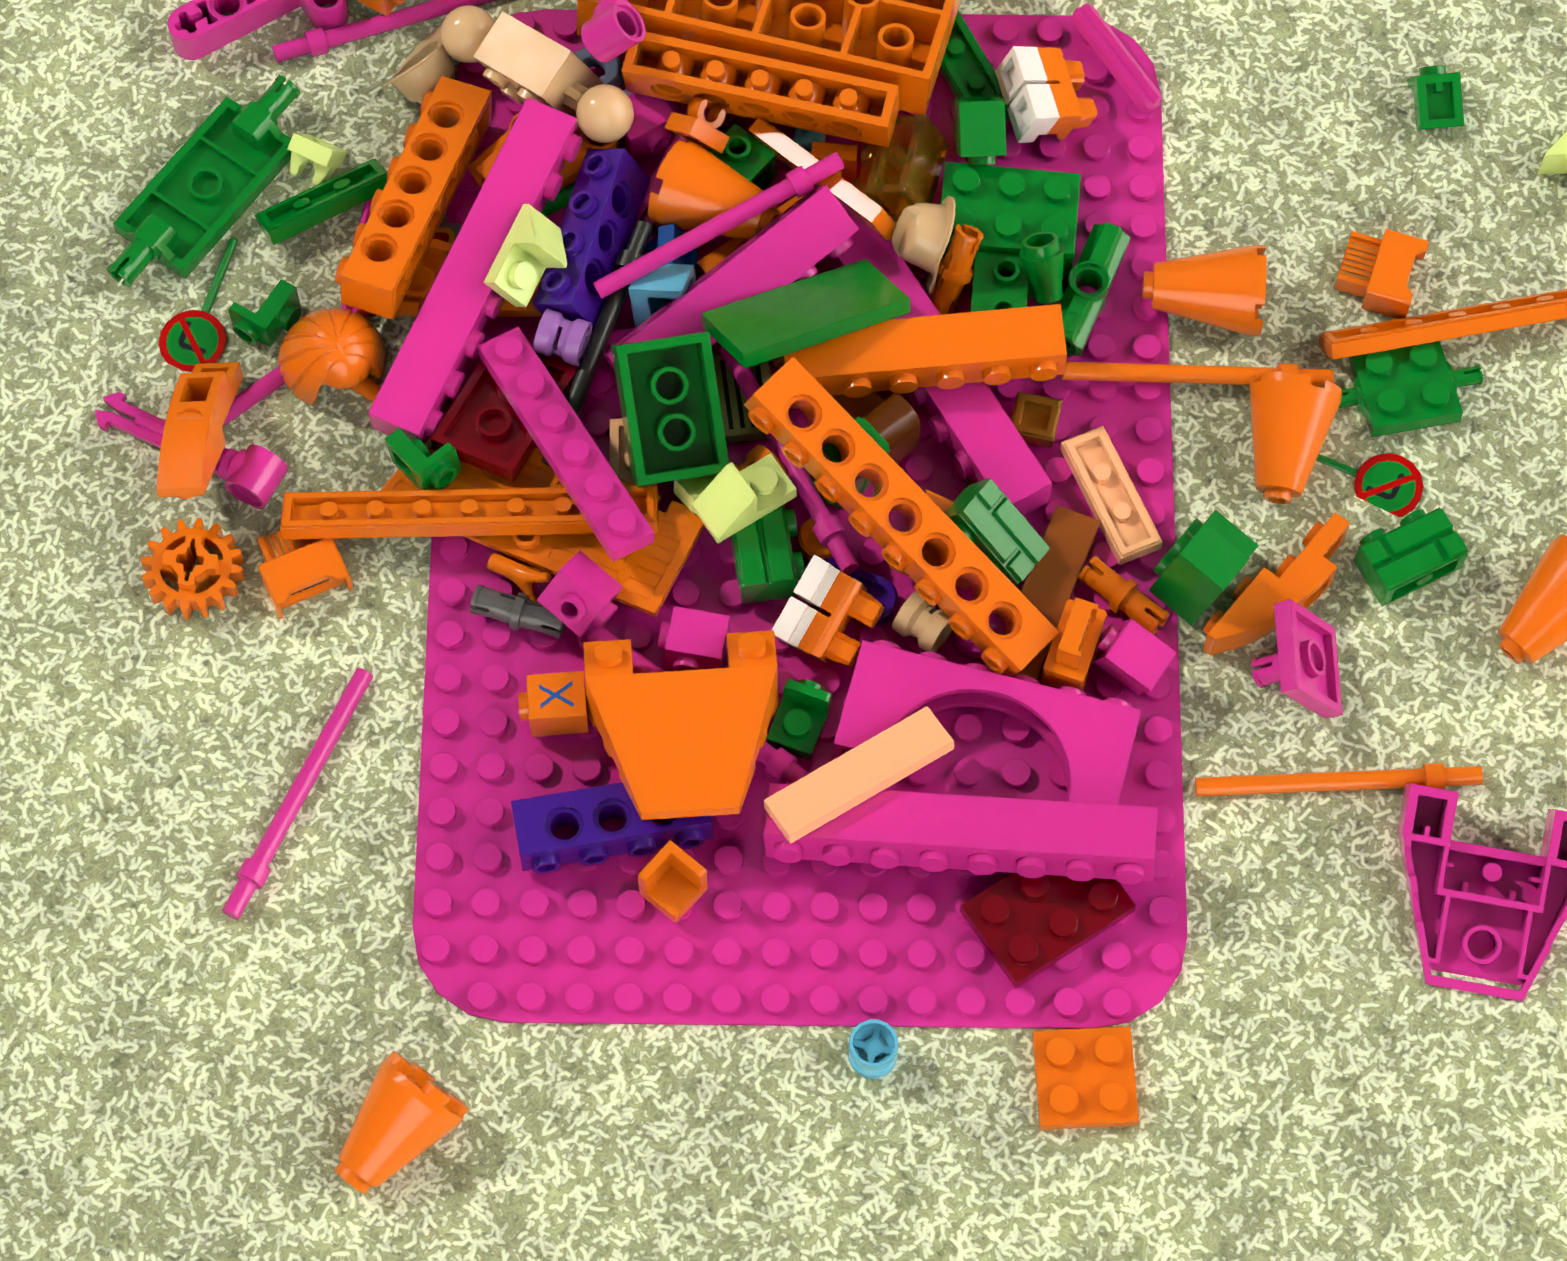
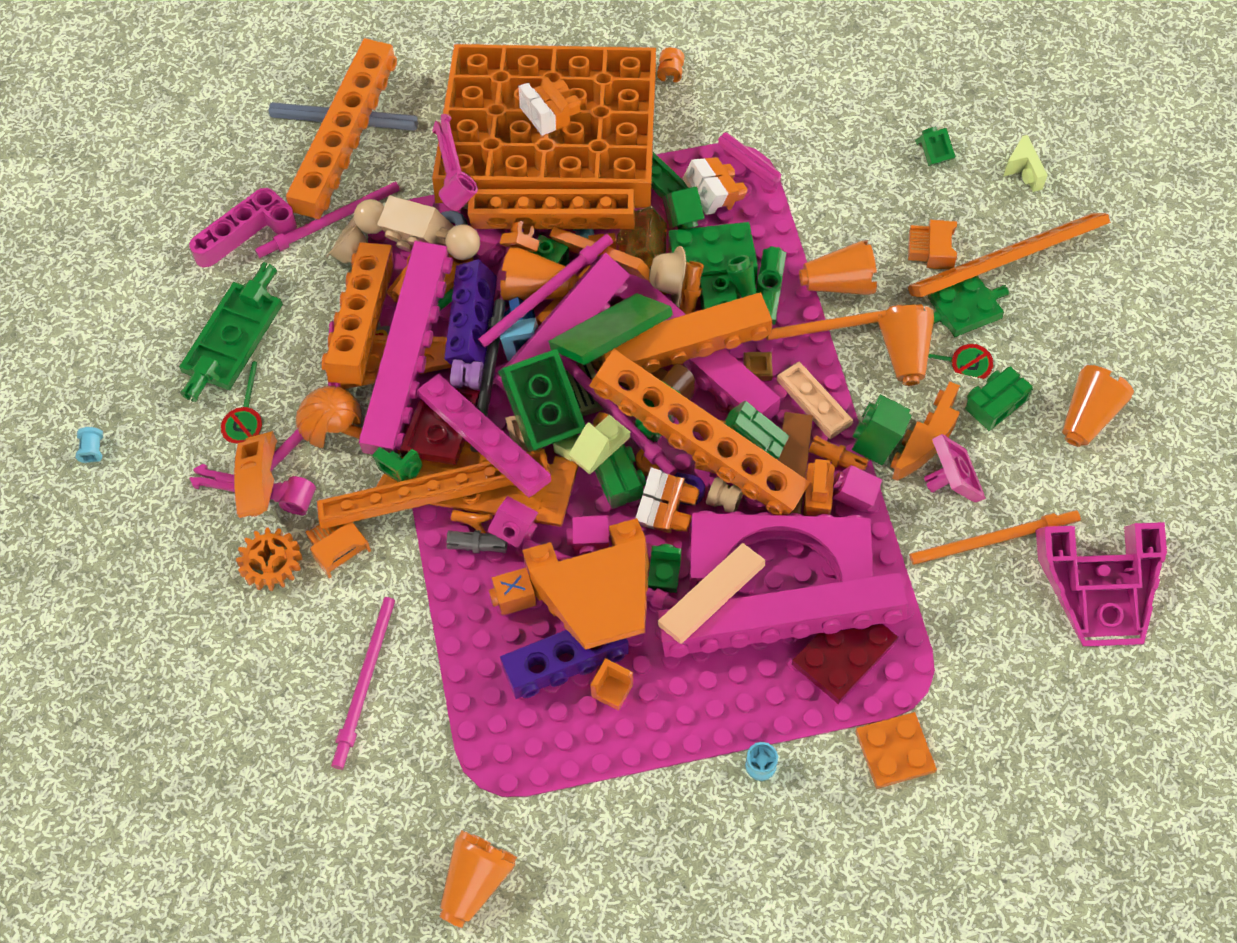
camera: 10 degrees left, 5 degrees down
(276, 314) = (288, 400): green bracket -> none
(309, 149) = (296, 303): yellowish green tile -> none
(322, 201) = (303, 329): green tile -> none
(525, 254) = (433, 331): yellowish green slope -> none

